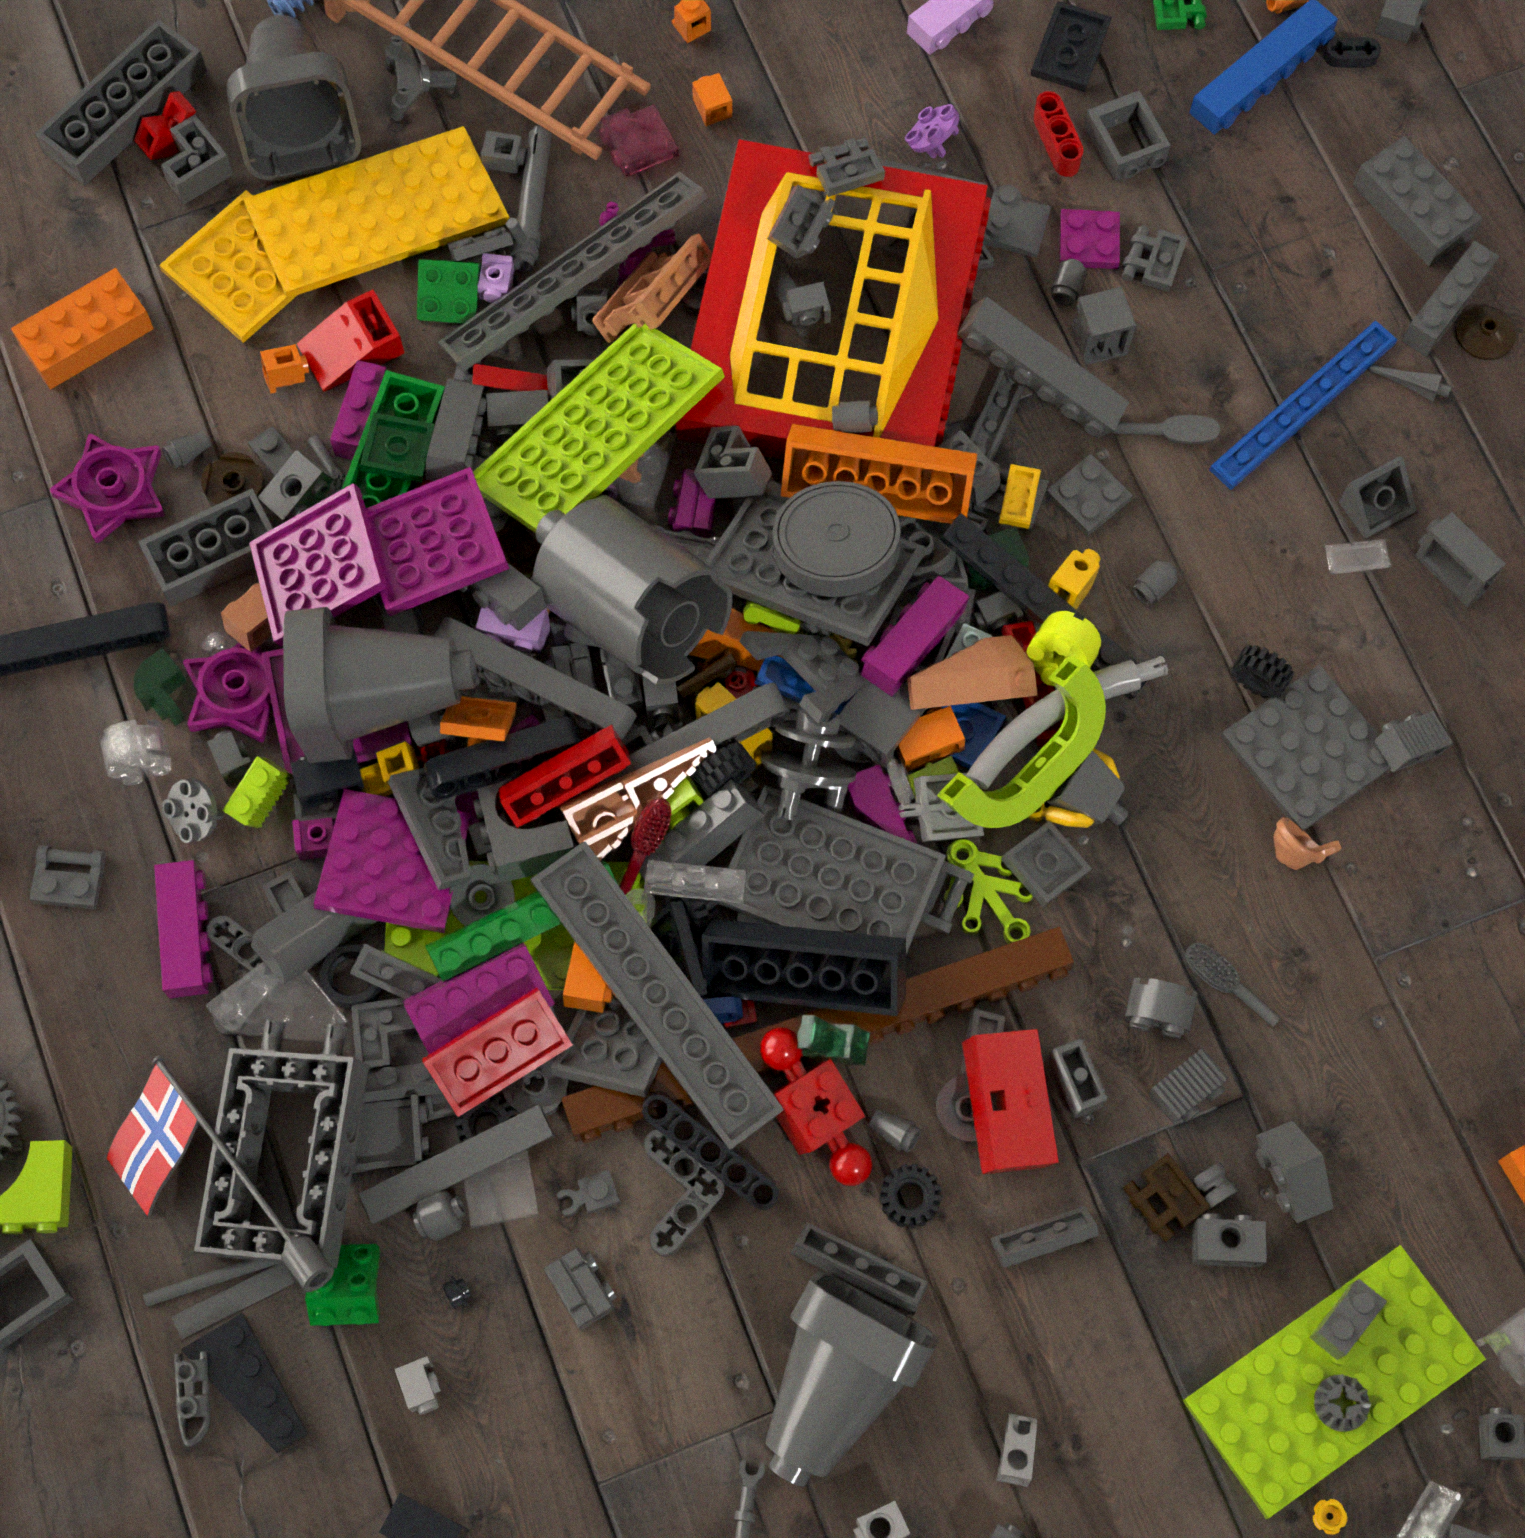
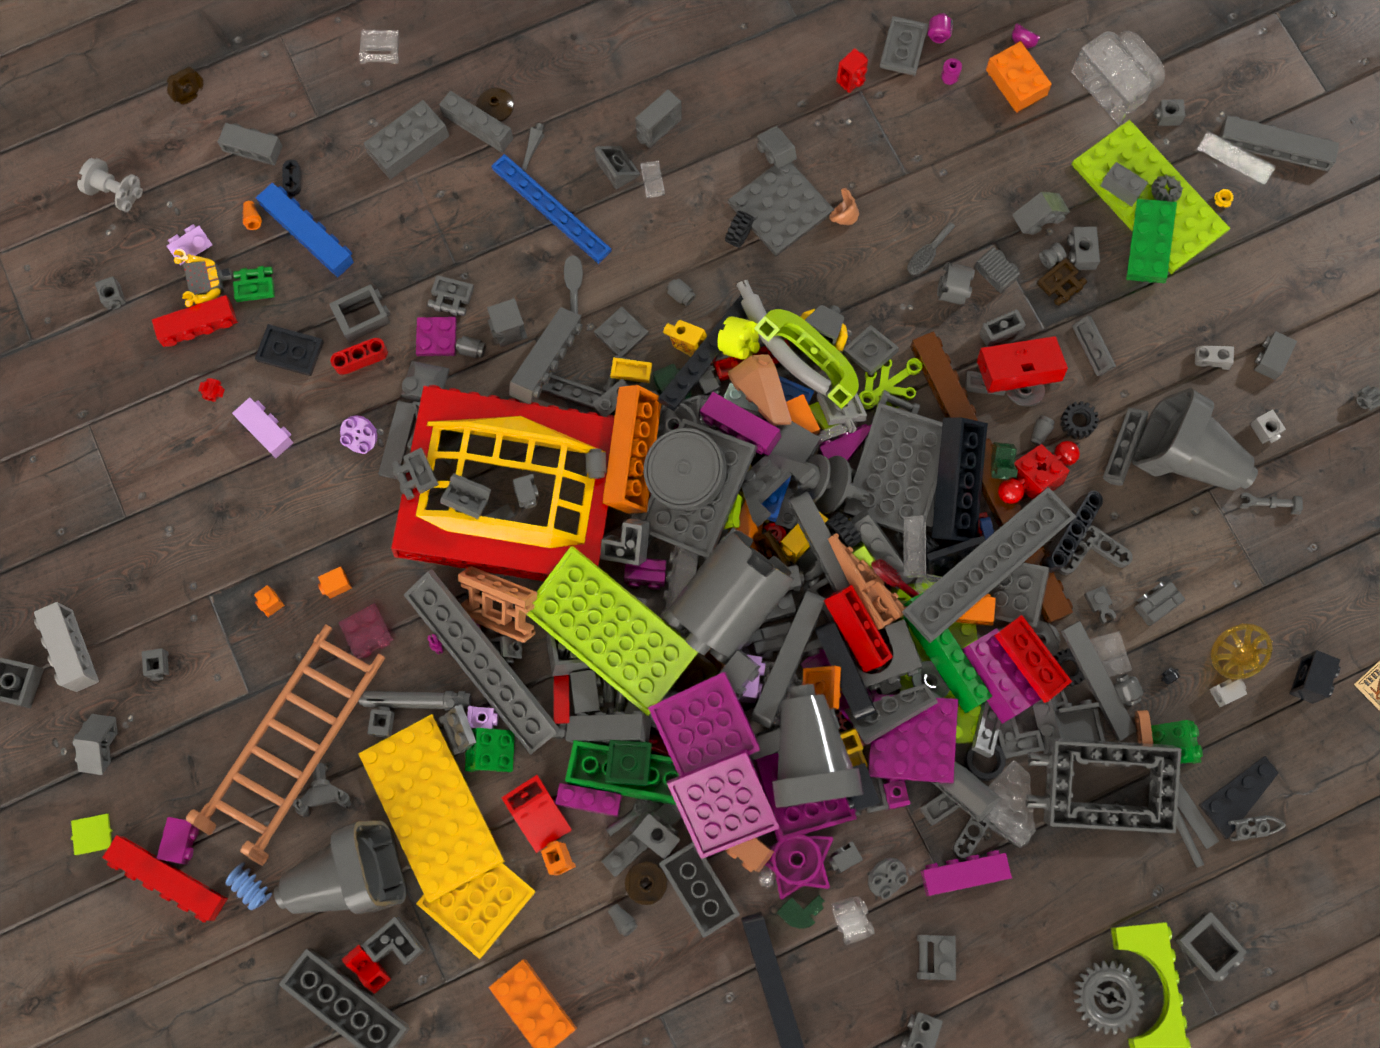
camera: 90 degrees left, 5 degrees up
(111, 485) = (641, 980): magenta plate -> none
(157, 1139) = (1106, 869): flag -> none
(257, 792) = (872, 834): lime brick -> none
(373, 1233) = (1143, 727): none -> nougat beam
(476, 1418) = (1244, 654): none -> clear yellow wheel
(1236, 1355) = (1151, 241): none -> green brick

